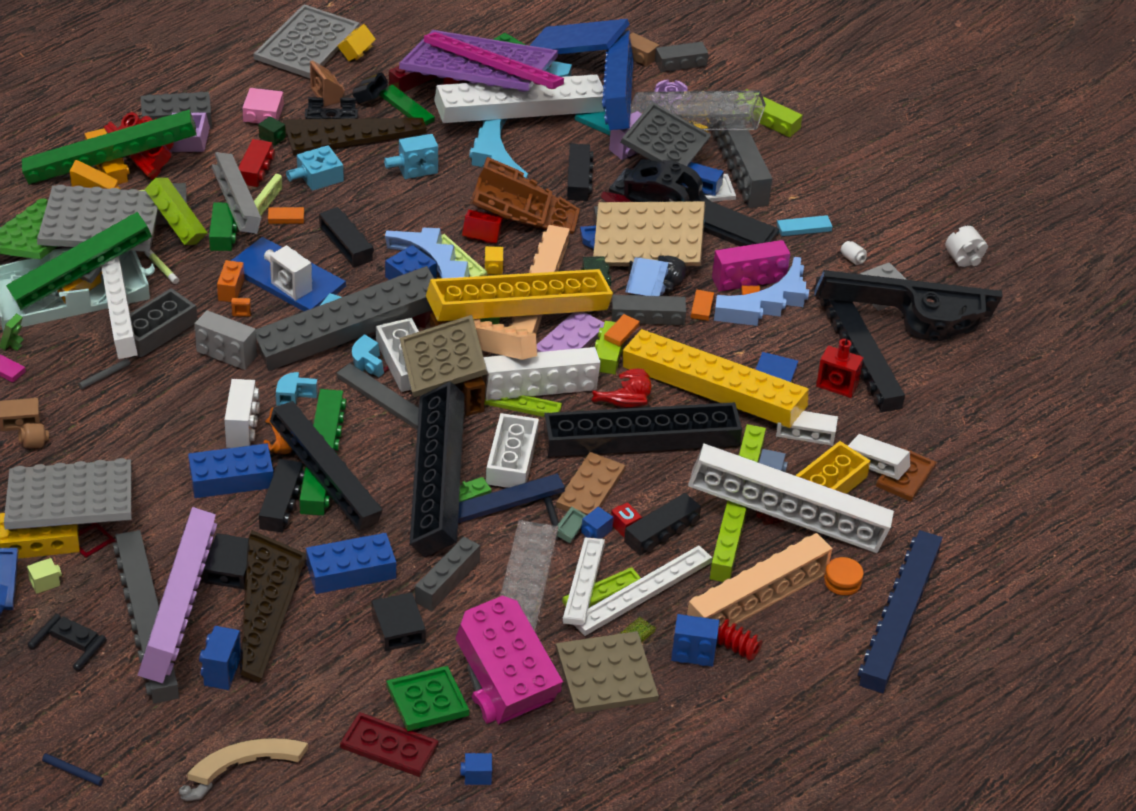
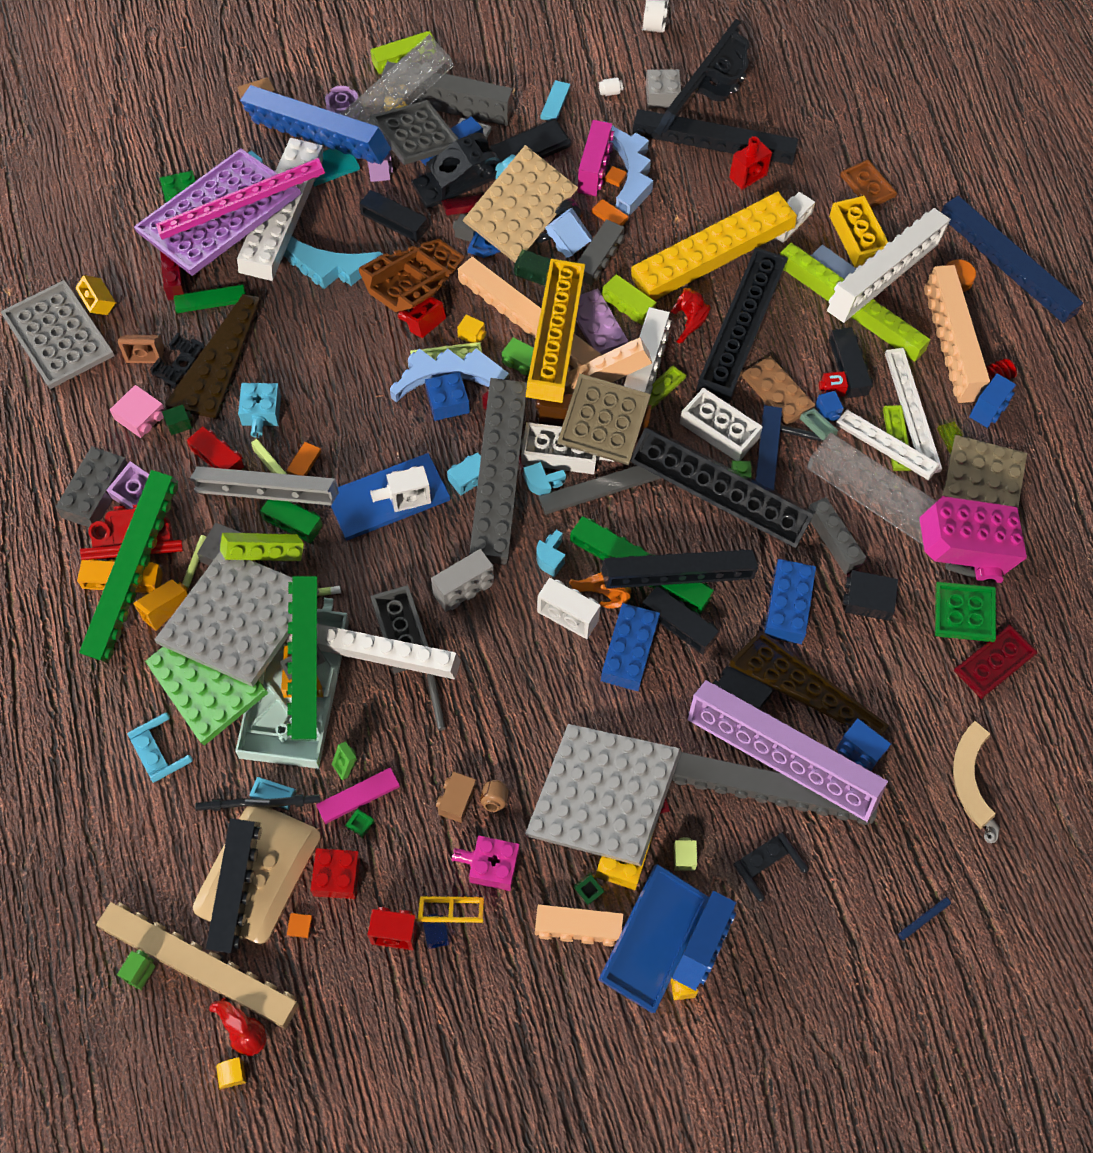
camera: 60 degrees left, 20 degrees up
(230, 280) = (376, 543): orange brick -> none
(241, 307) = (415, 550): orange tile -> none
(346, 237) = (369, 426): black brick -> none
(370, 88) = (171, 314): black brick -> none
(416, 156) = (301, 322): medium azure brick -> none
(477, 768) = (1053, 609): blue brick -> none
(581, 36) = (223, 127): blue tile -> none
(621, 330) = (625, 280): orange tile -> none
(681, 56) = (289, 71): dark grey brick -> none
(777, 366) = (713, 205): blue tile -> none
(882, 456) = (860, 184): white brick -> none

